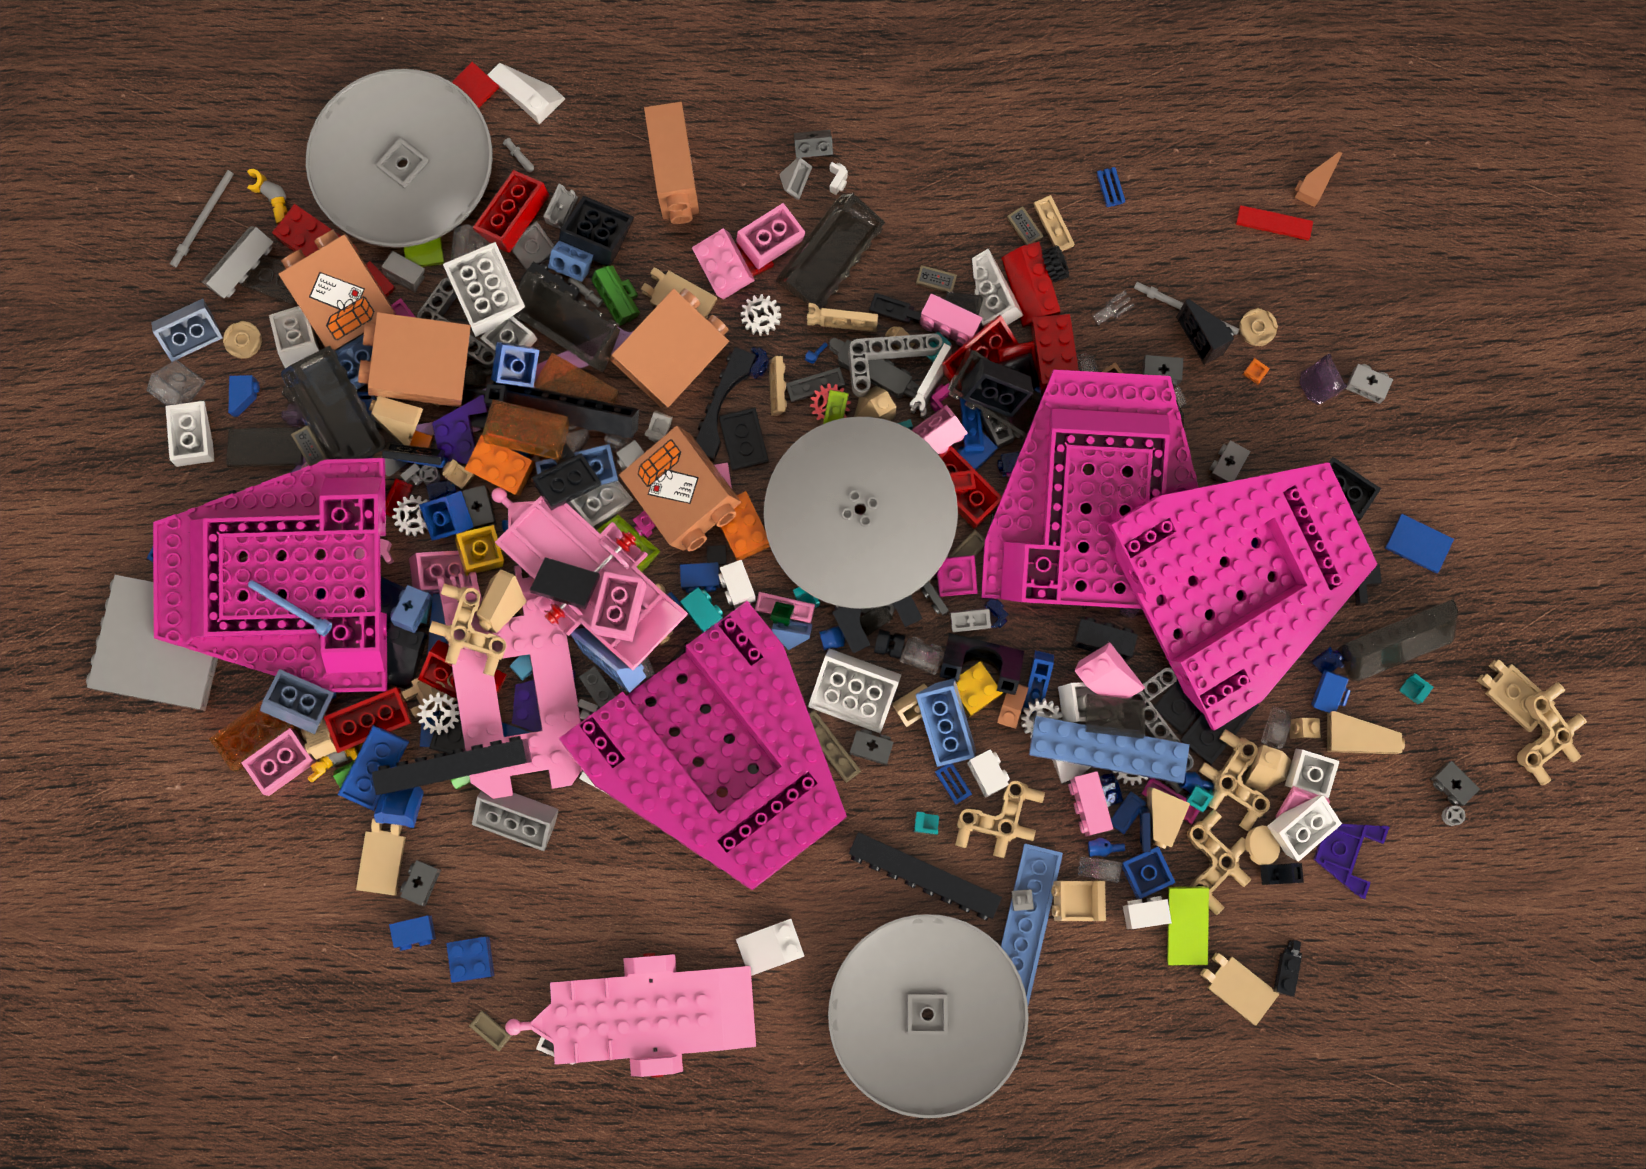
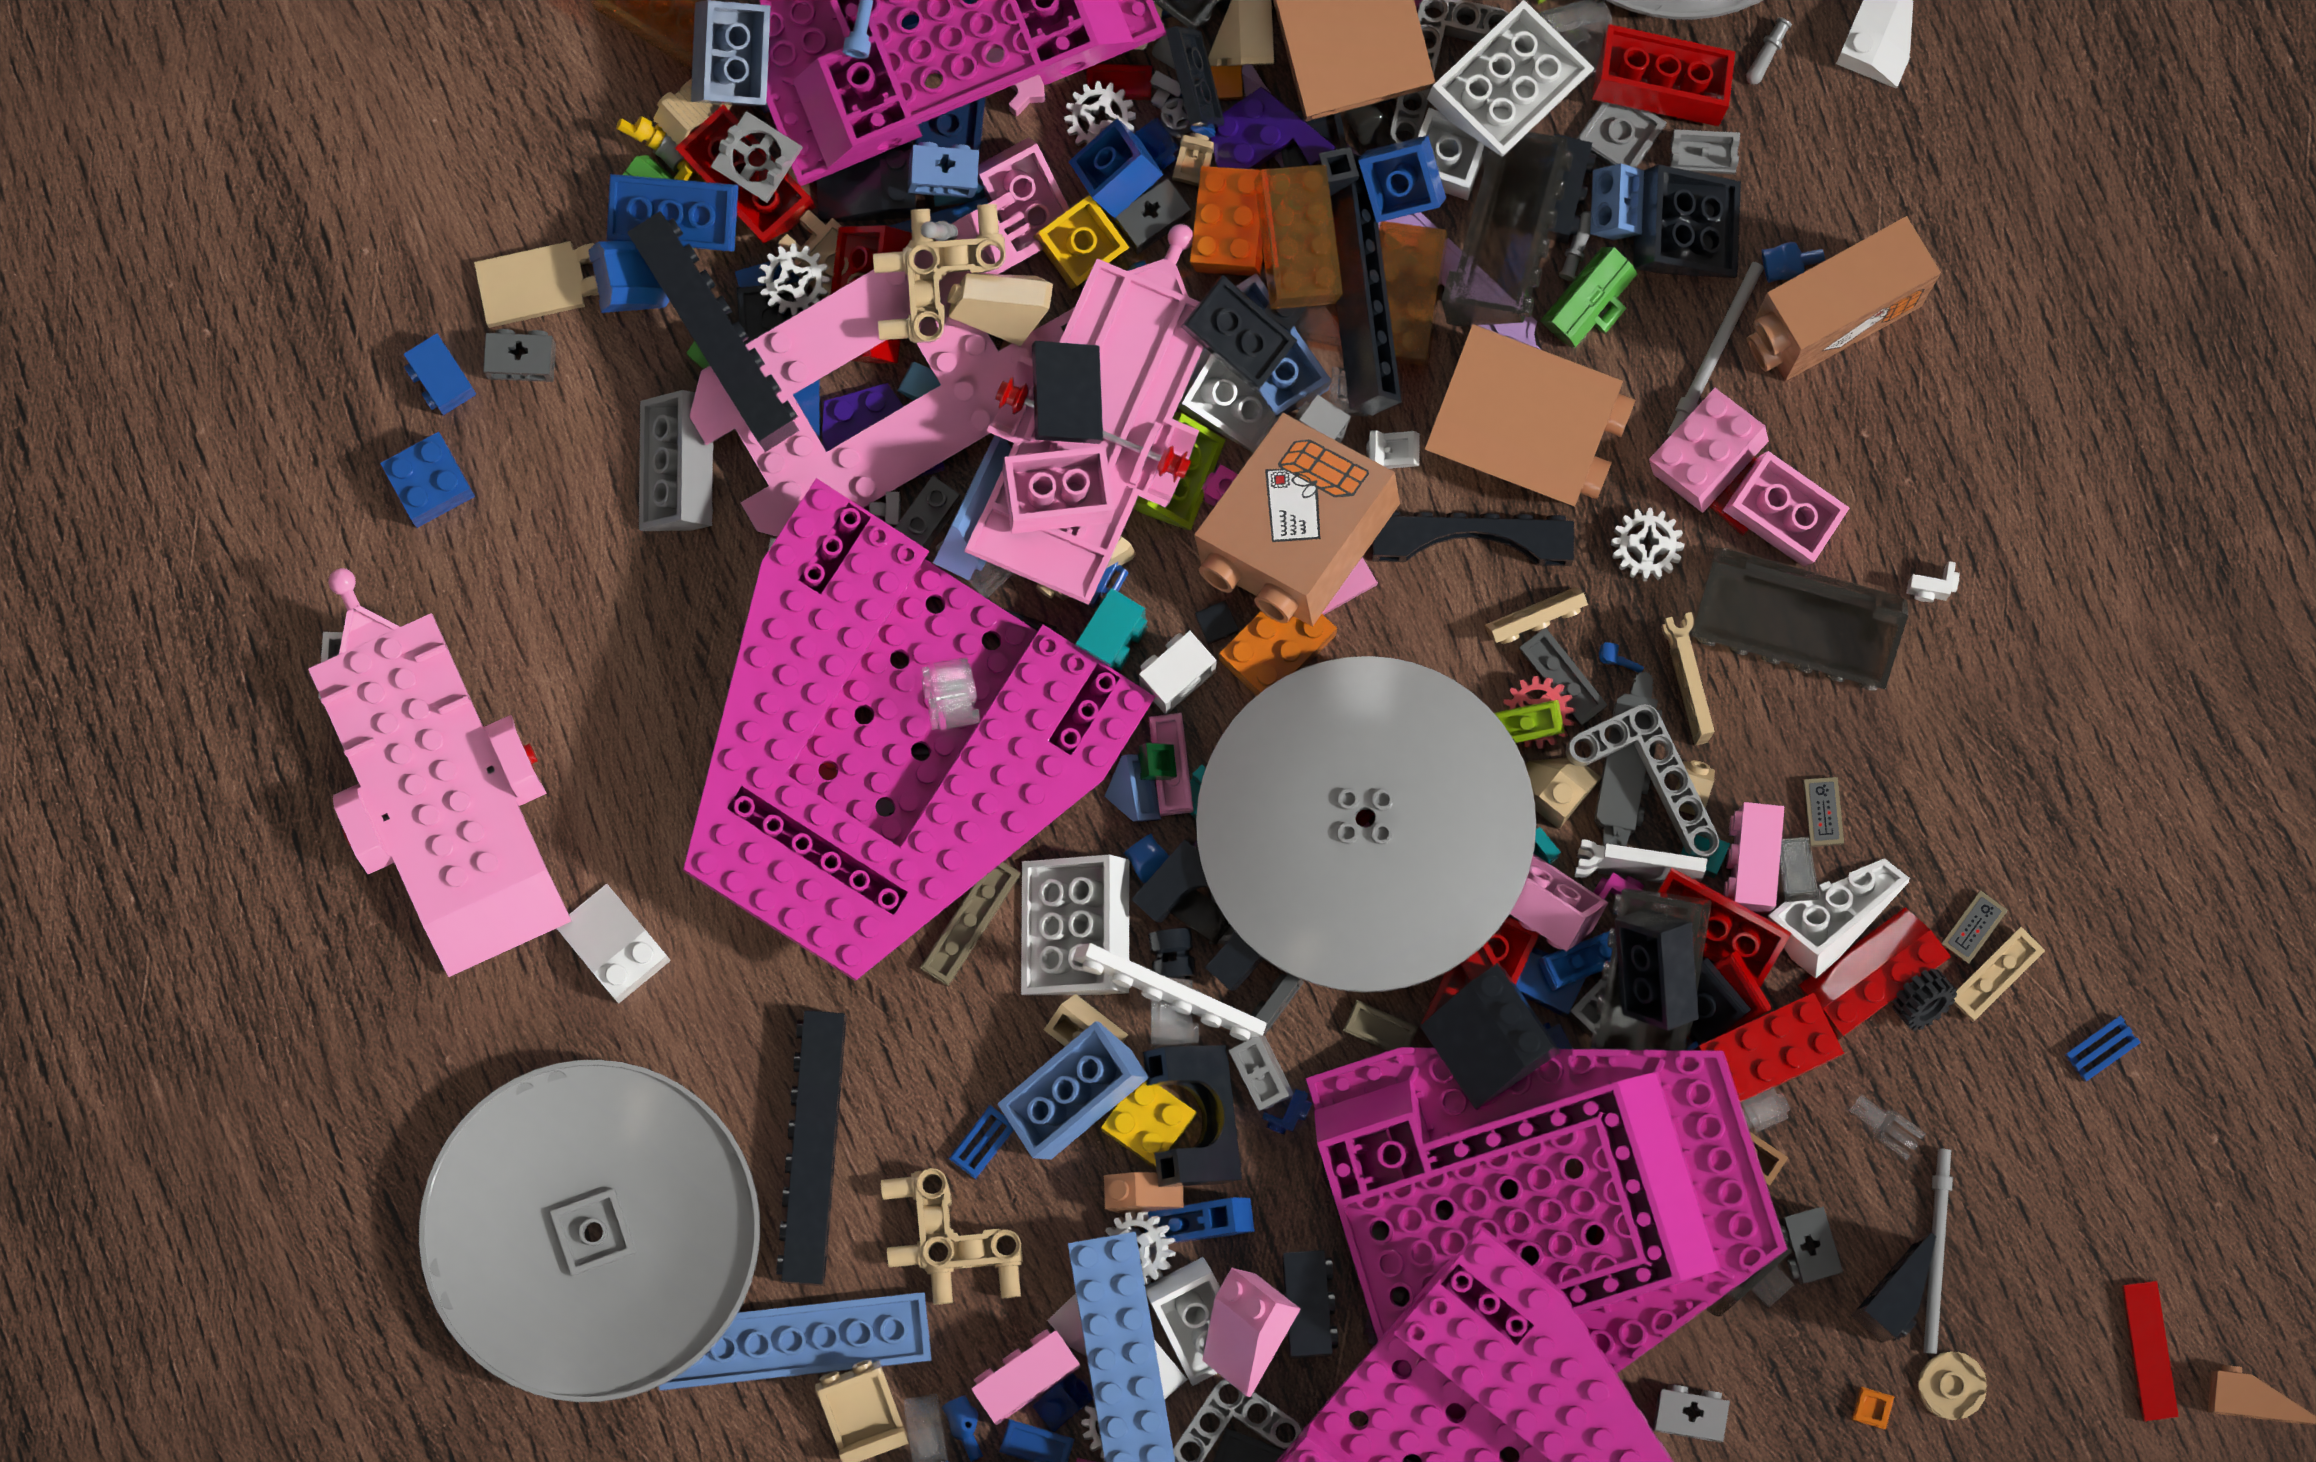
camera: 70 degrees right, 0 degrees up
(278, 762) = (629, 64): bright pink brick -> none
(341, 706) = (777, 169): none -> light grey piece
(447, 619) = (940, 230): none -> light grey piece
(490, 1030) = (329, 551): dark tan tile -> none
(636, 187) = (1788, 261): none -> blue piece
(670, 281) = (1643, 383): tan tile -> none
(693, 266) = (1689, 402): none -> light grey bar
(700, 575) = (1168, 606): blue brick -> none
(706, 708) = (950, 693): none -> clear brick
(743, 439) = (1427, 594): black tile -> none
(759, 366) = (1558, 574): clear blue bracket -> none
(795, 177) = (1908, 514): light grey slope -> none
(813, 143) = (1976, 521): dark grey brick -> none
(860, 748) = (983, 969): dark grey brick -> none
(894, 309) = (1742, 757): black hinge -> none
(909, 655) = (1159, 987): none -> white plate
(926, 823) = (900, 1121): teal panel -> none
(957, 576) = (1327, 1026): dark pink tile -> none
(988, 773) = (1016, 1190): white brick -> none
(999, 490) = (1489, 1036): none -> black slope
(1022, 900) = (829, 1319): light grey tile -> none
(1115, 716) = (1183, 1363): clear smoke tile -> none

